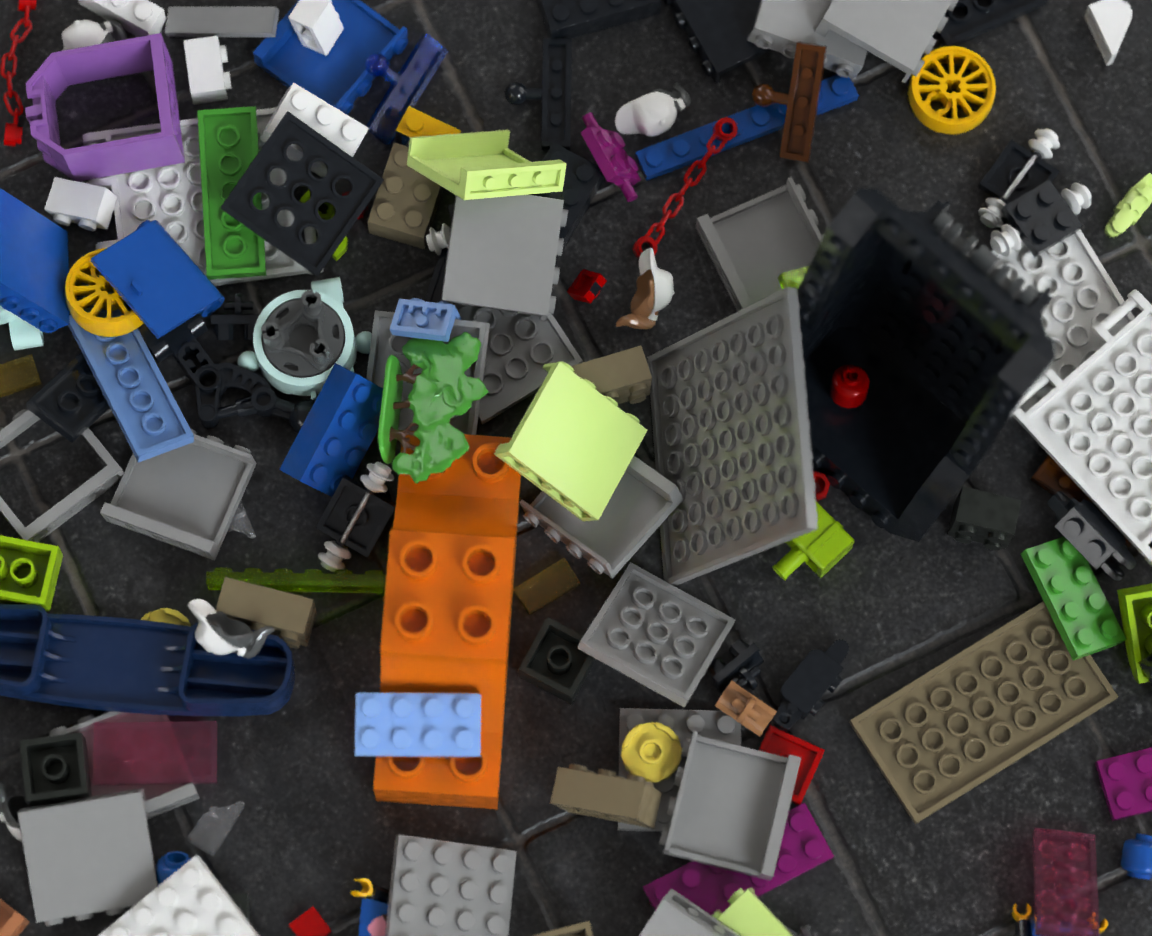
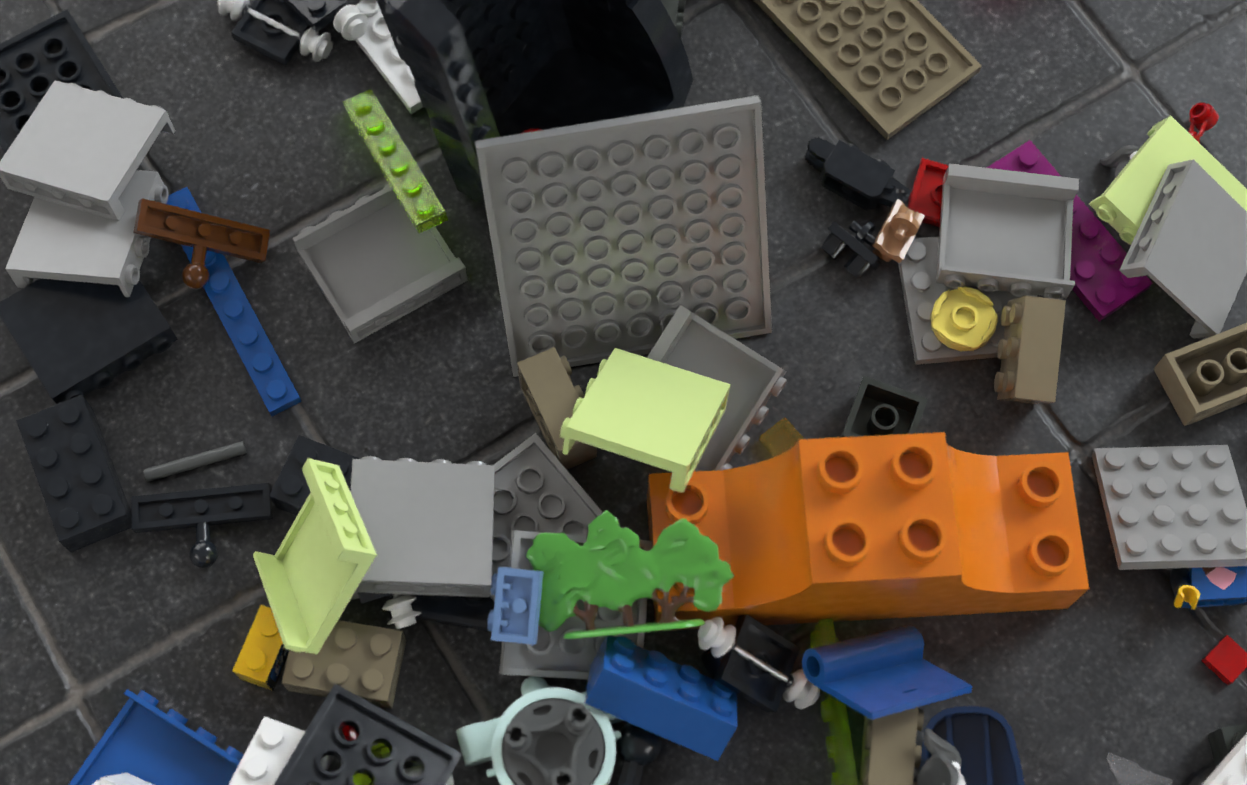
camera: 95 degrees left, 5 degrees down
(329, 612) = (881, 673): none -> blue door
(405, 86) = (201, 684): clear blue plate -> none
(418, 725) = (1018, 539): light blue plate -> none
(586, 286) = (438, 444): red plate -> none
(599, 90) = (195, 461): none -> dark grey bar
(611, 156) = (268, 438): magenta plate -> none
(652, 112) = (221, 393): white hair -> none
(652, 294) = (440, 375): hair -> none
(656, 634) = (841, 321): light grey plate -> none
(719, 135) = (244, 319): red piece -> none
(935, 119) = (180, 91): yellow piece -> none

